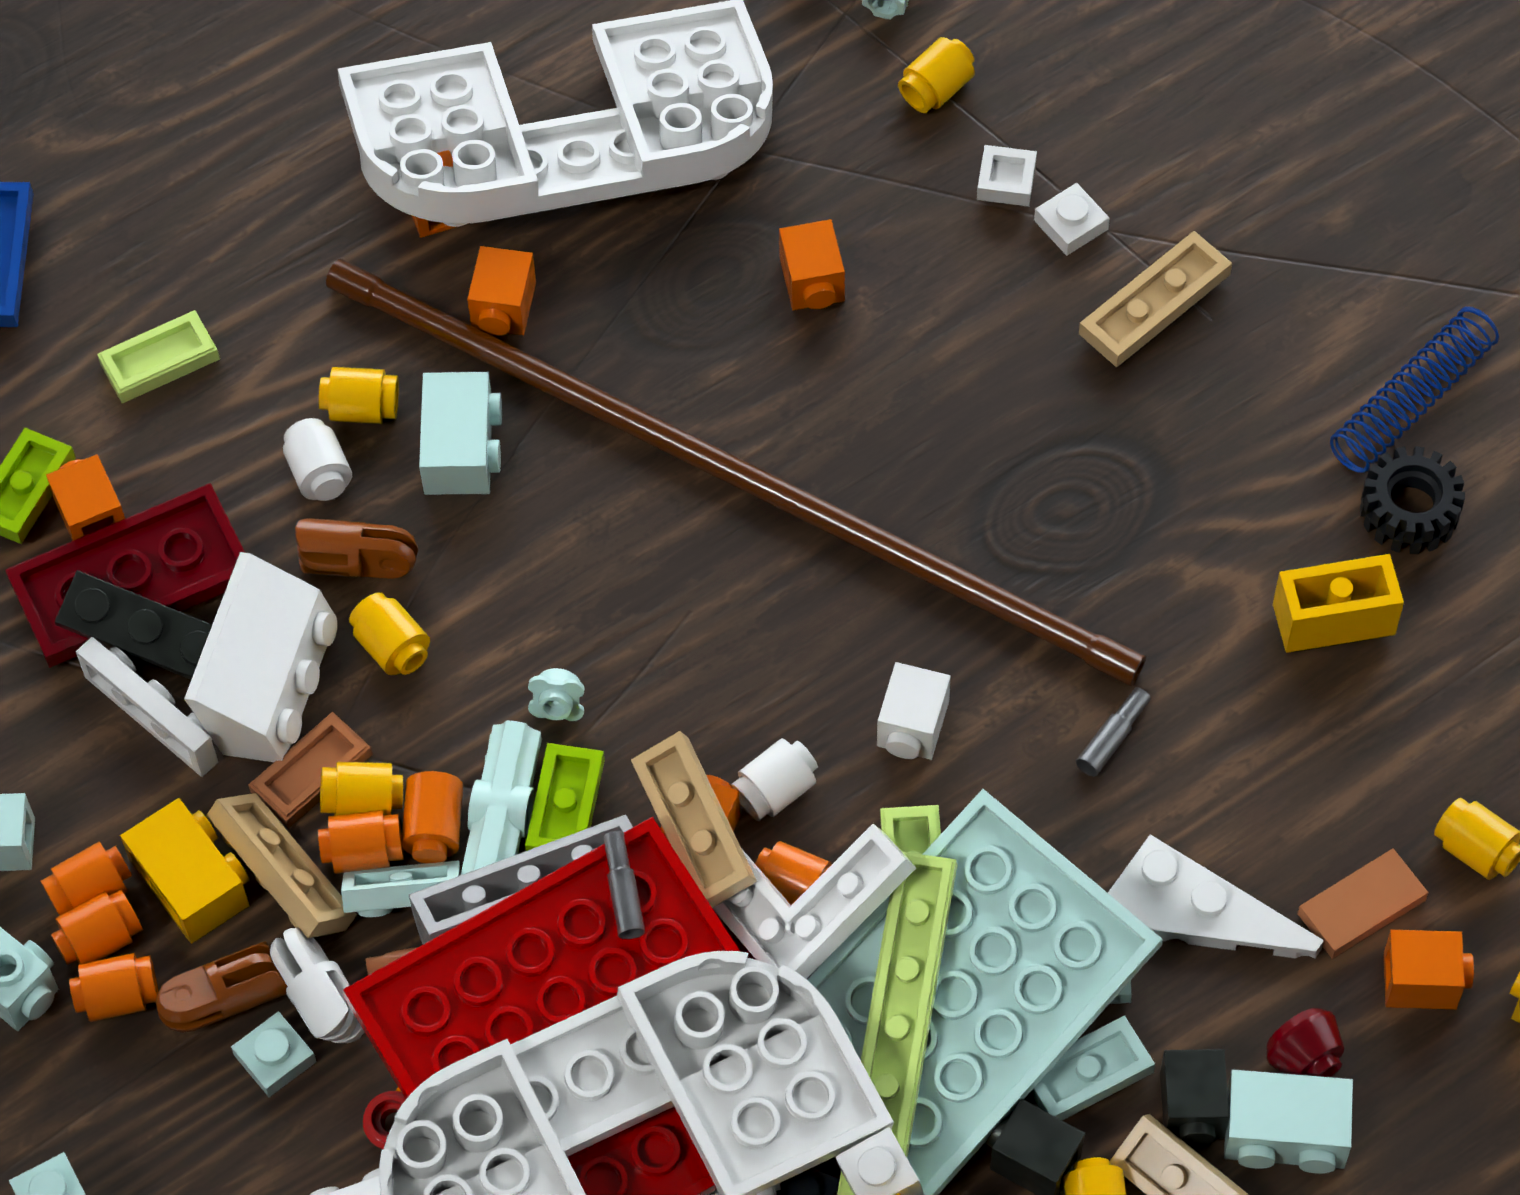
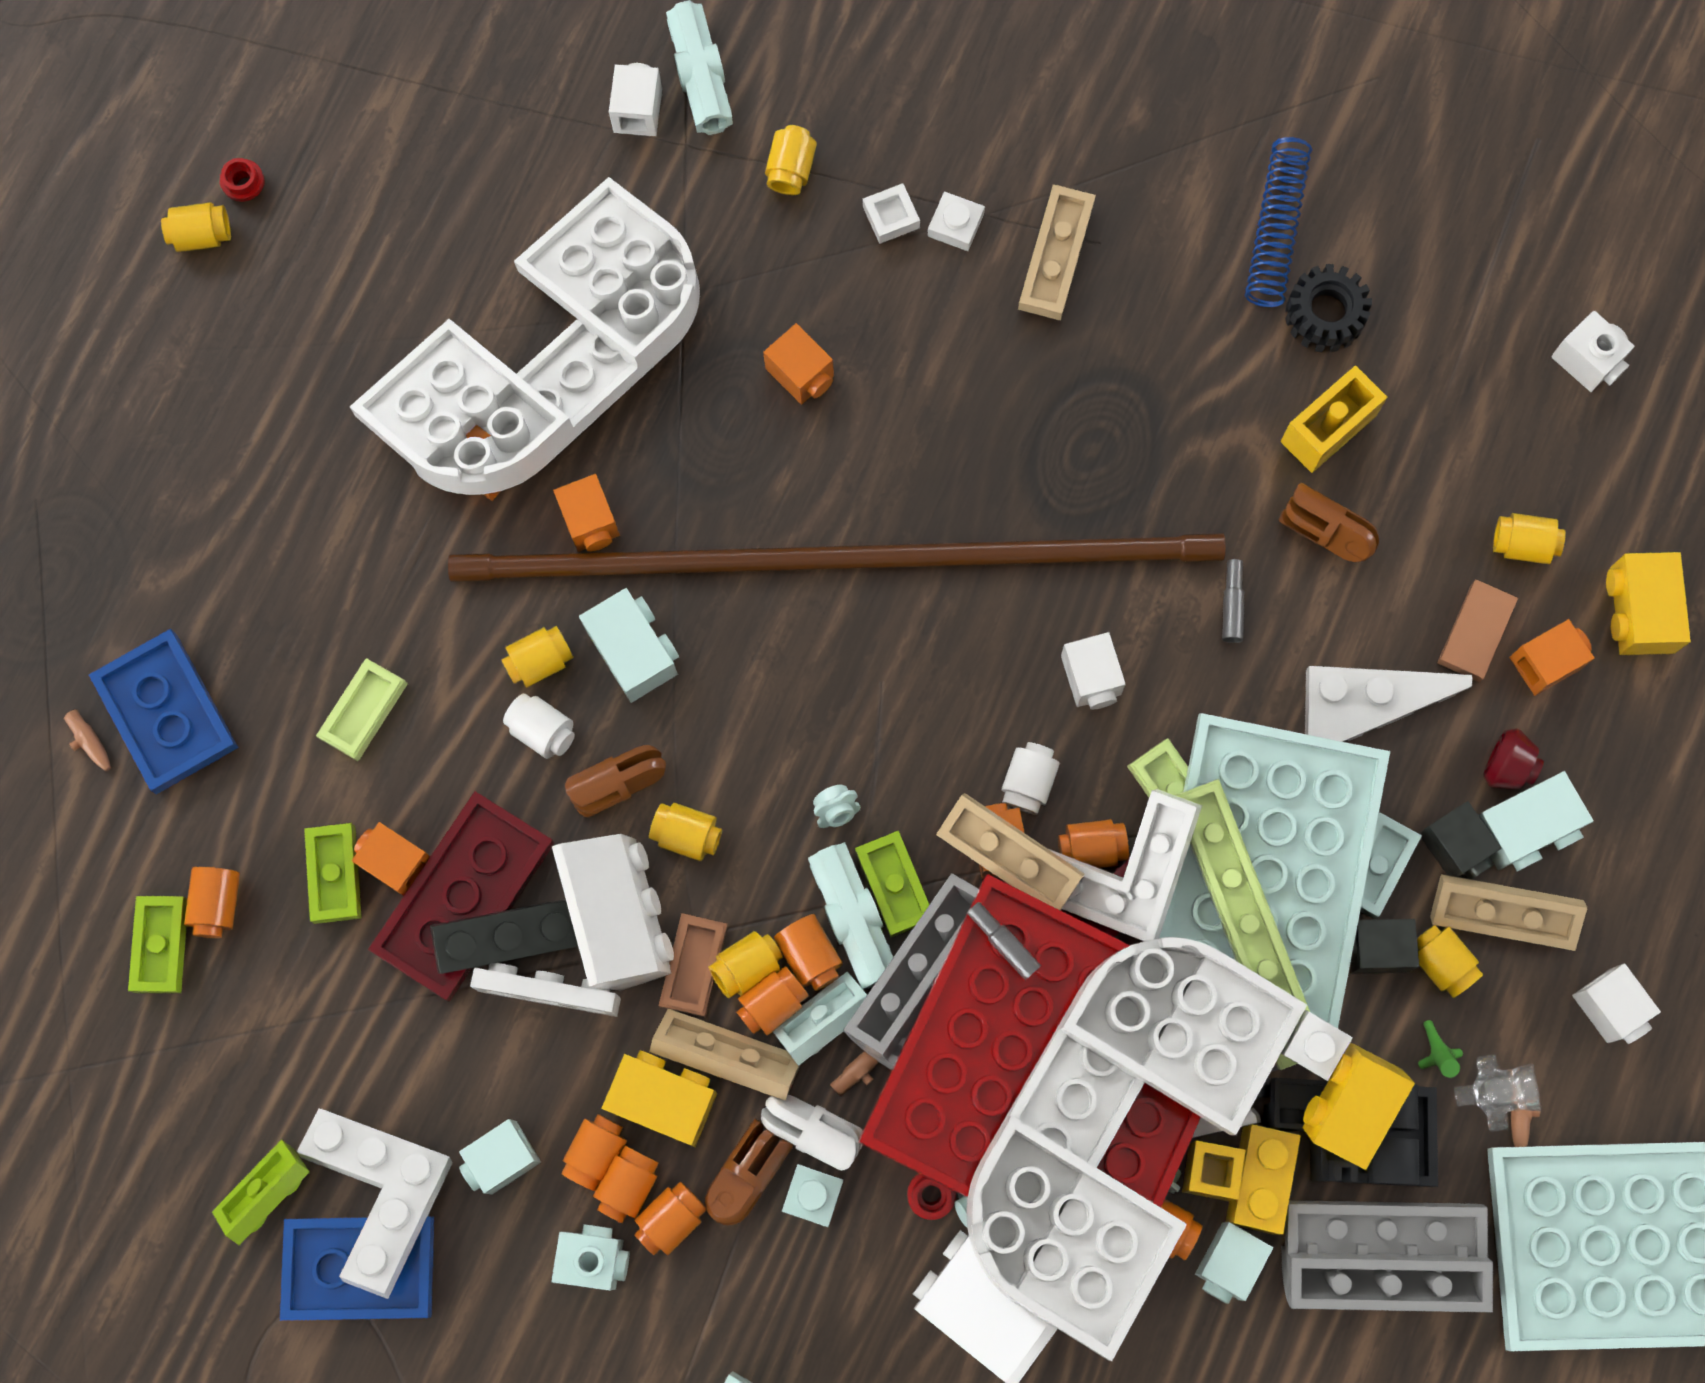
camera: 30 degrees left, 15 degrees up
(1267, 708) = (1330, 525): none -> dark orange arm

